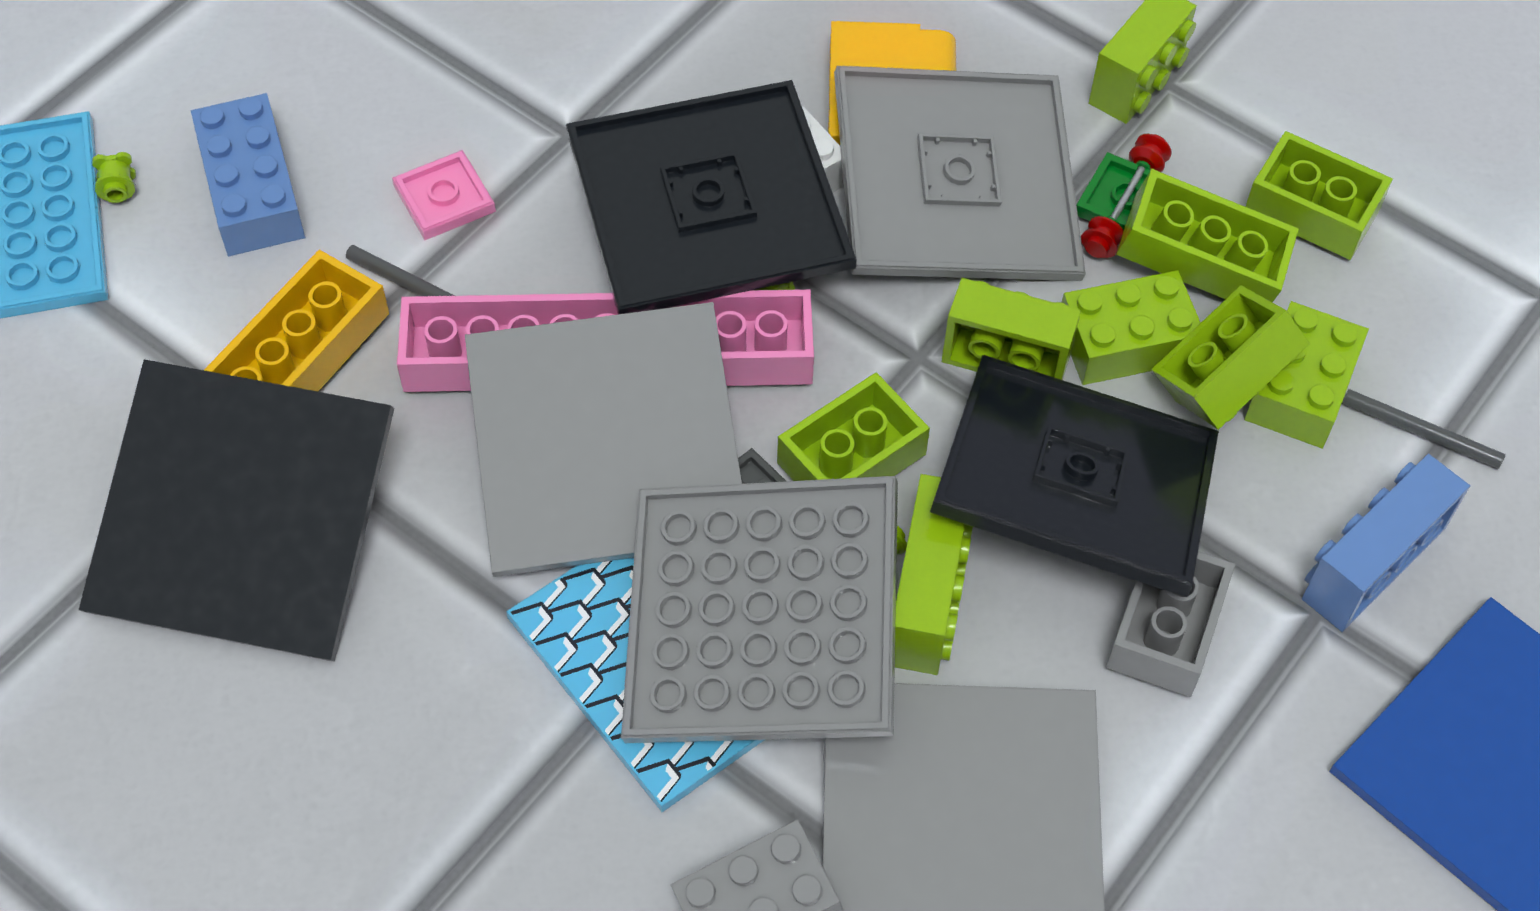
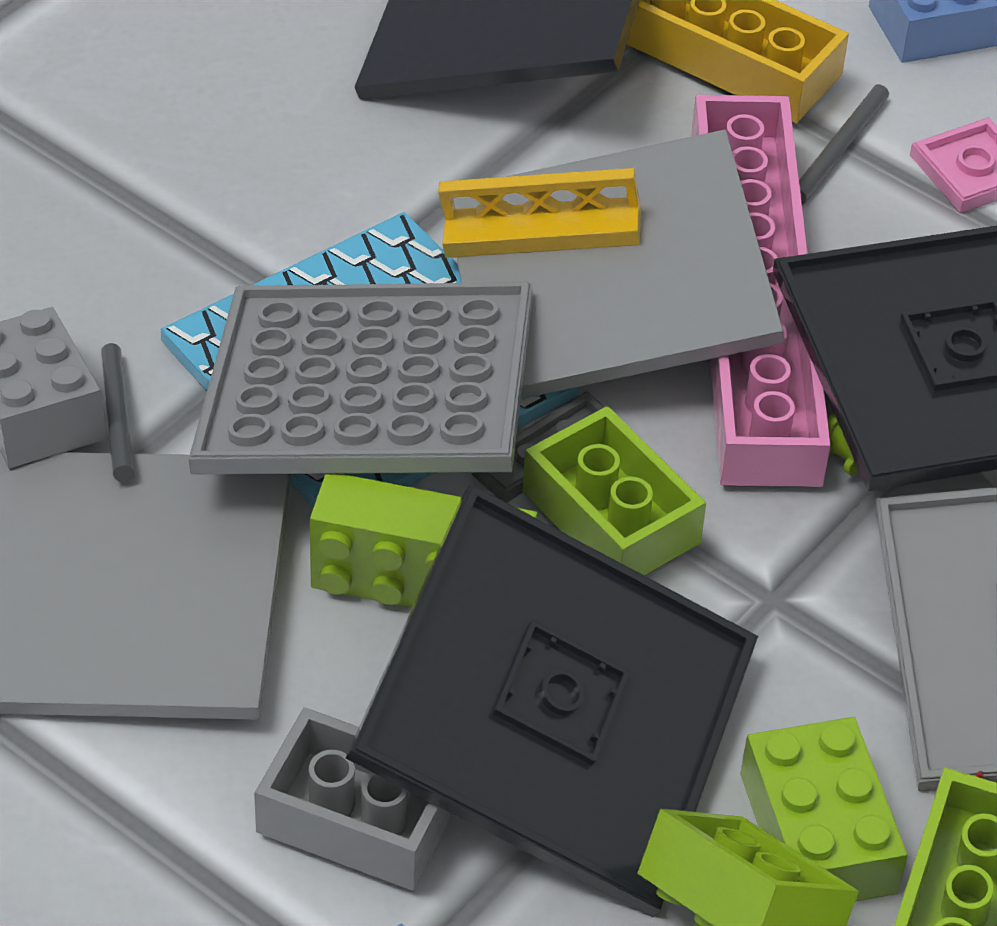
camera: 90 degrees right, 10 degrees down
(563, 482) = (542, 221): none -> yellow fence
(744, 836) = (117, 413): none -> dark grey bar
(1008, 328) = (786, 651): lime brick -> none

